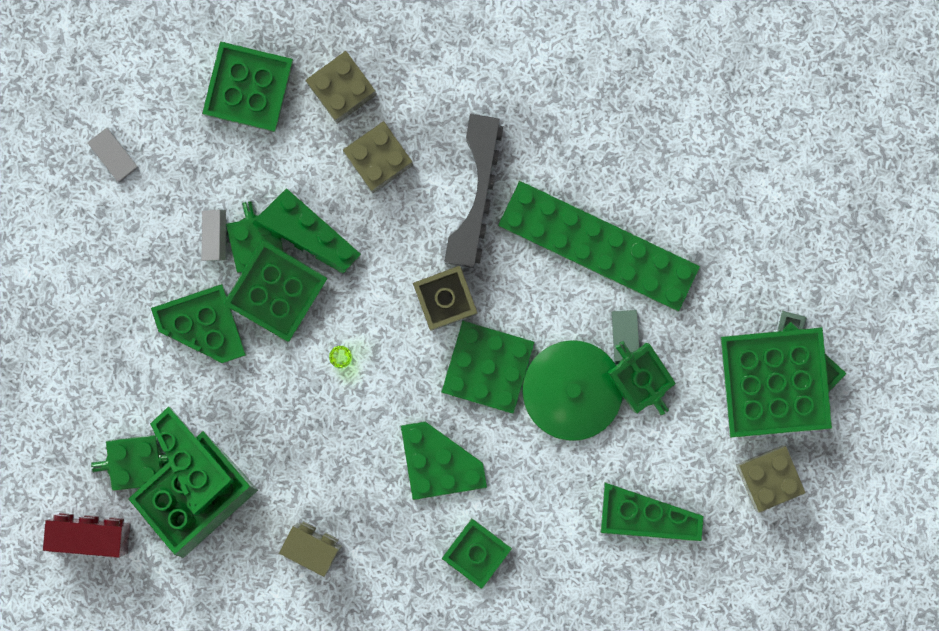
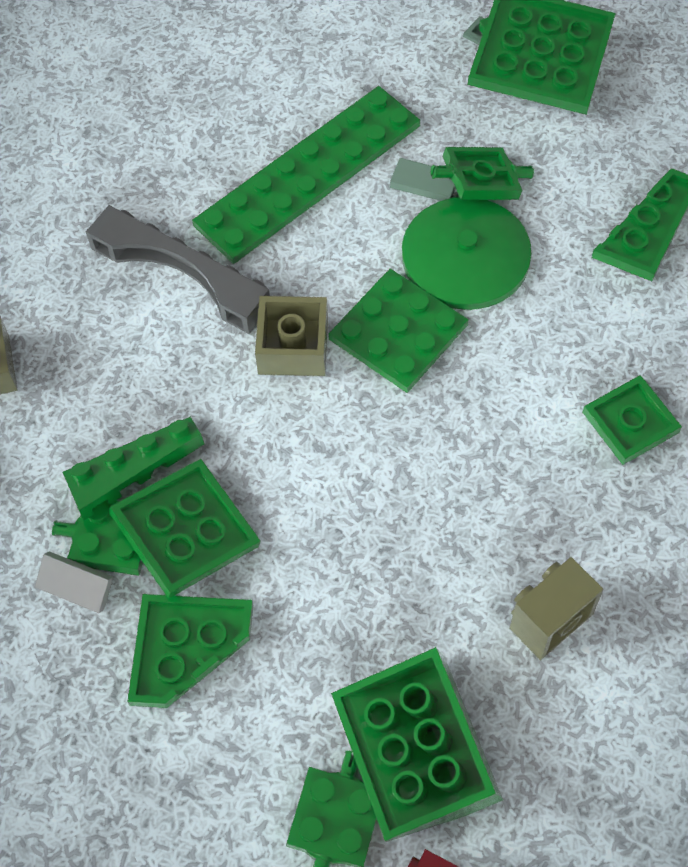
camera: 70 degrees left, 25 degrees down
(195, 467) = (370, 717): green wing -> none
(347, 353) = (309, 498): clear neon green bush -> none
(378, 157) = (81, 350): olive brick -> none
(438, 463) = (496, 426): green plate -> none
(770, 478) = (650, 93): olive brick -> none

